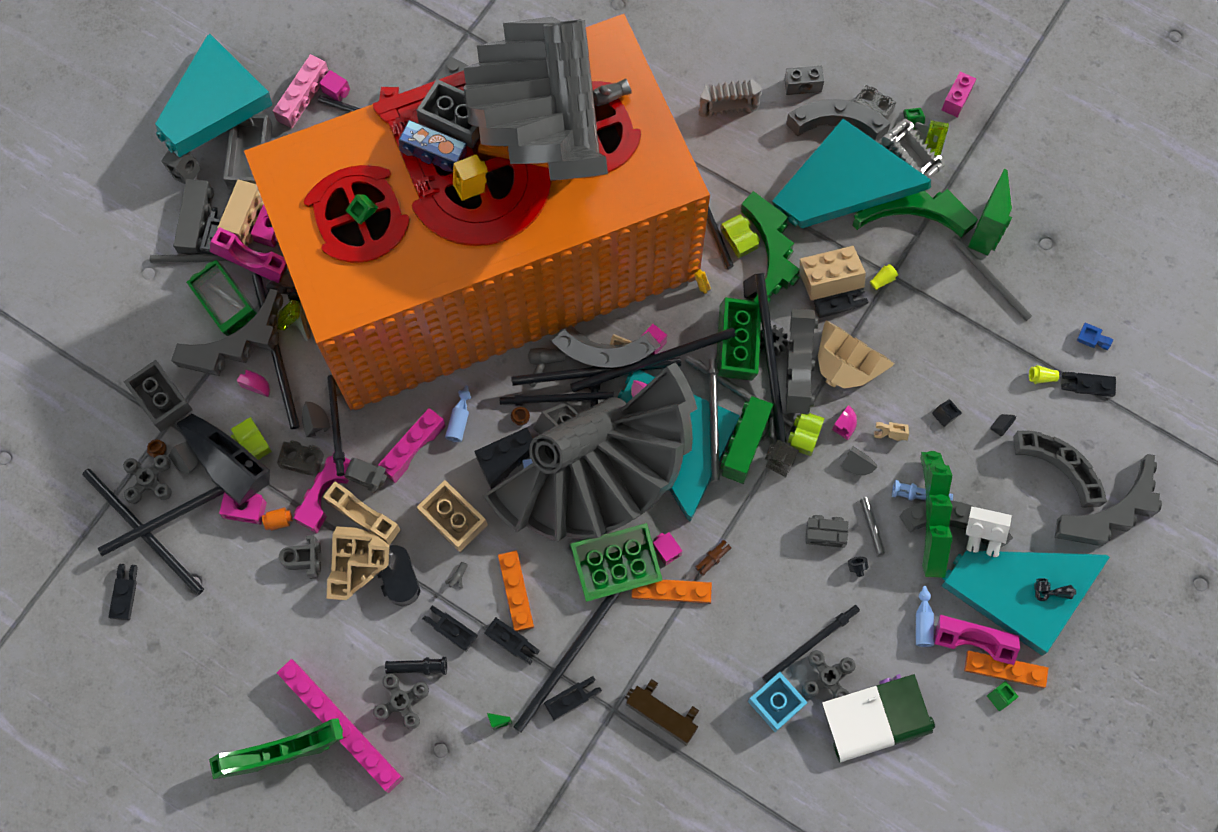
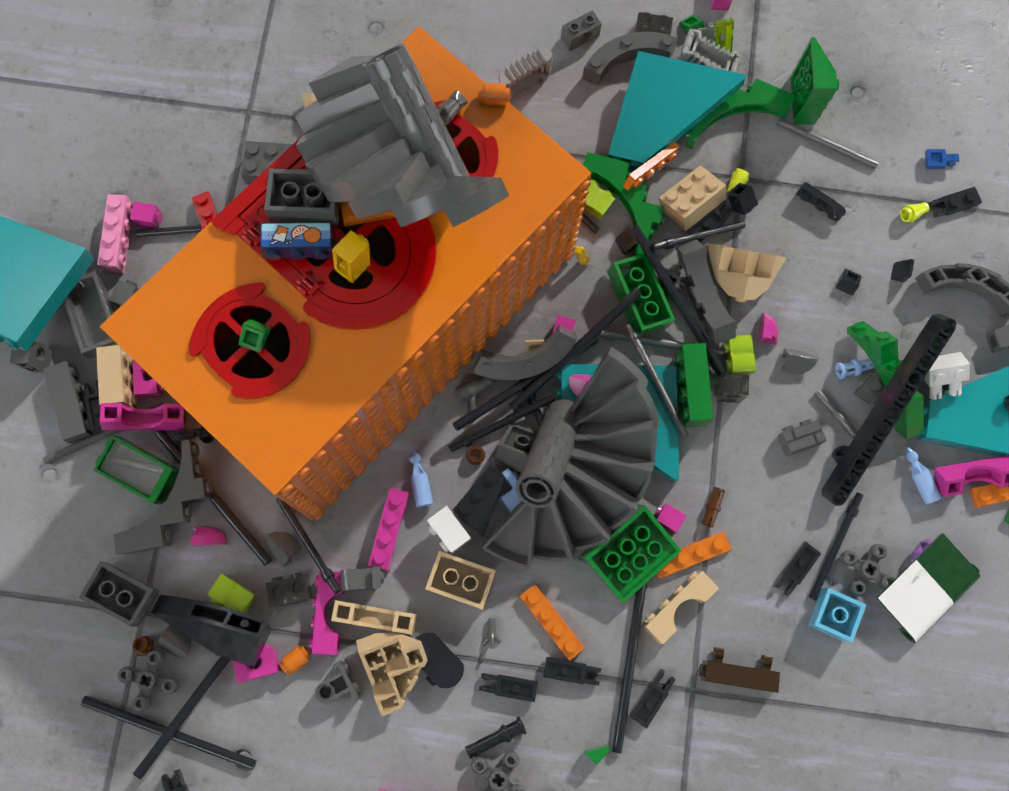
camera: 30 degrees left, 5 degrees up
(292, 315) = (213, 456): clear neon green piece -> none
(461, 465) = (448, 529): none -> white brick
(657, 95) = (493, 94): none -> orange brick
(661, 621) = (662, 625): none -> tan arch
(765, 645) = (798, 567): none -> black hinge
(786, 302) = (669, 243): none -> black bar
(803, 228) = (648, 169): none -> orange plate
(879, 293) = (742, 198): none -> black brick
(893, 430) = (815, 318): tan plate -> none
(922, 535) = (888, 408): none -> black beam
(955, 327) = (821, 201): none -> black hinge

